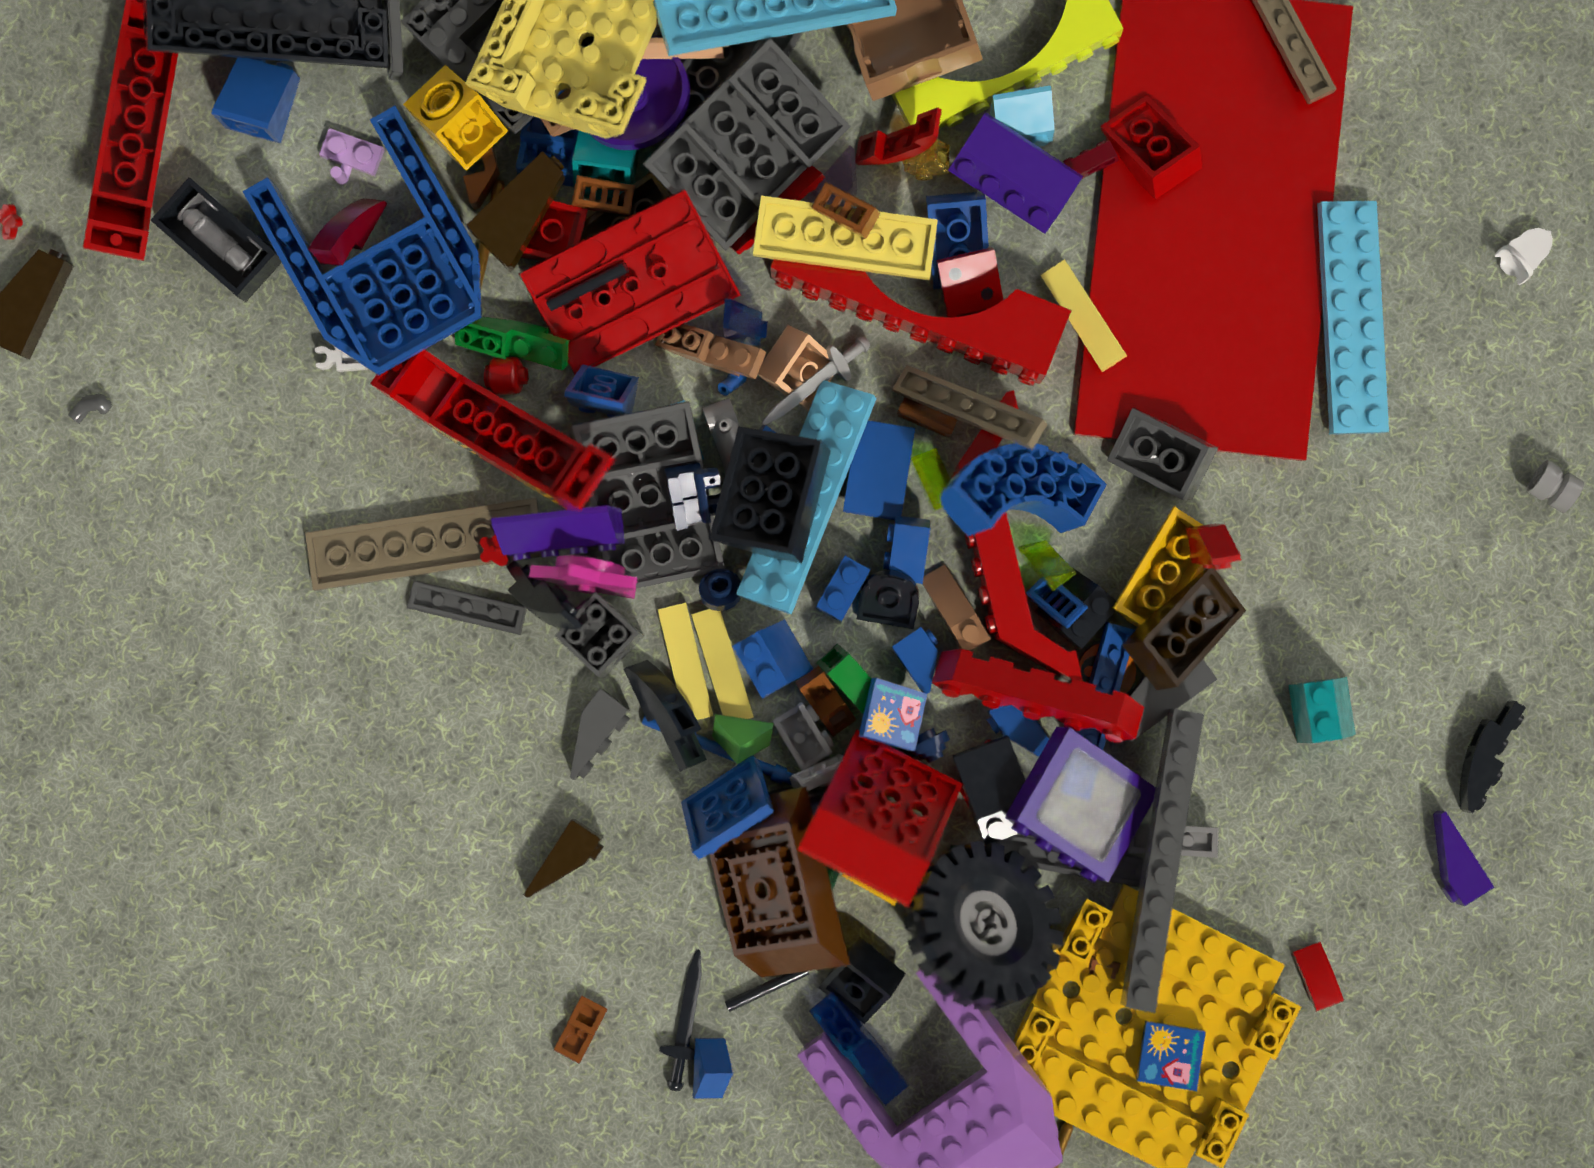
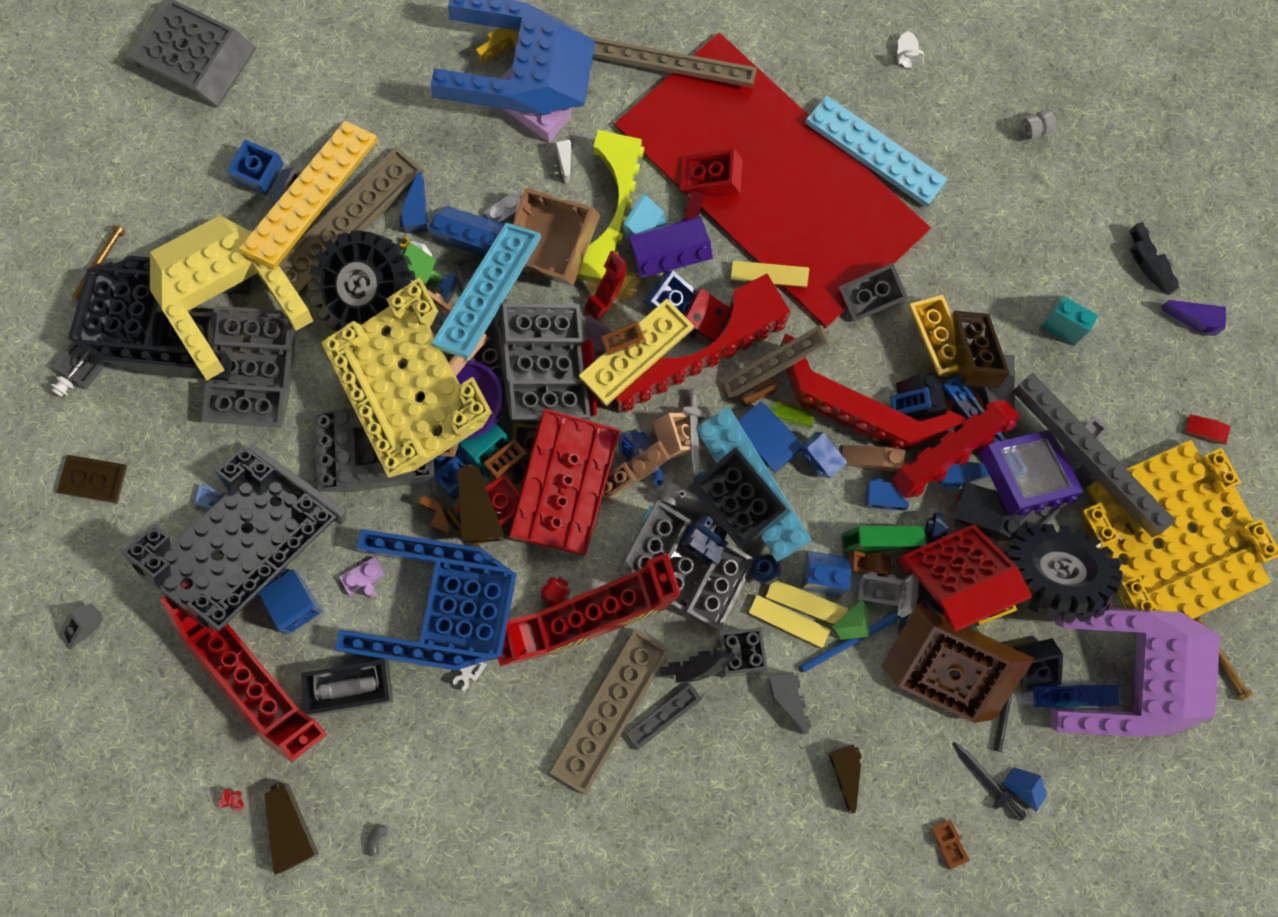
camera: 60 degrees left, 10 degrees down
(347, 231) = (405, 611): dark red slope -> none
(455, 117) = (396, 501): yellow brick -> none
(492, 552) = (645, 673): red piece -> none
(514, 338) = (543, 566): green slope -> none
(559, 531) = (667, 628): dark purple slope -> none
(587, 286) = (547, 505): black bar -> none
(587, 576) = (705, 631): dark pink plate -> none
(602, 391) = (609, 544): blue slope -> none
(666, 705) = (806, 648): black slope -> none
(726, 807) = (891, 659): blue plate -> none
(842, 588) = (816, 505): blue brick -> none
(889, 599) = (841, 486): black tile -> none
(893, 714) = (908, 530): tile -> none
(1024, 481) = (839, 364): blue brick -> none
(1046, 563) = (887, 391): clear neon green slope -> none
(1170, 1055) = (1199, 534): blue tile -> none
(1212, 546) = (947, 299): red slope -> none

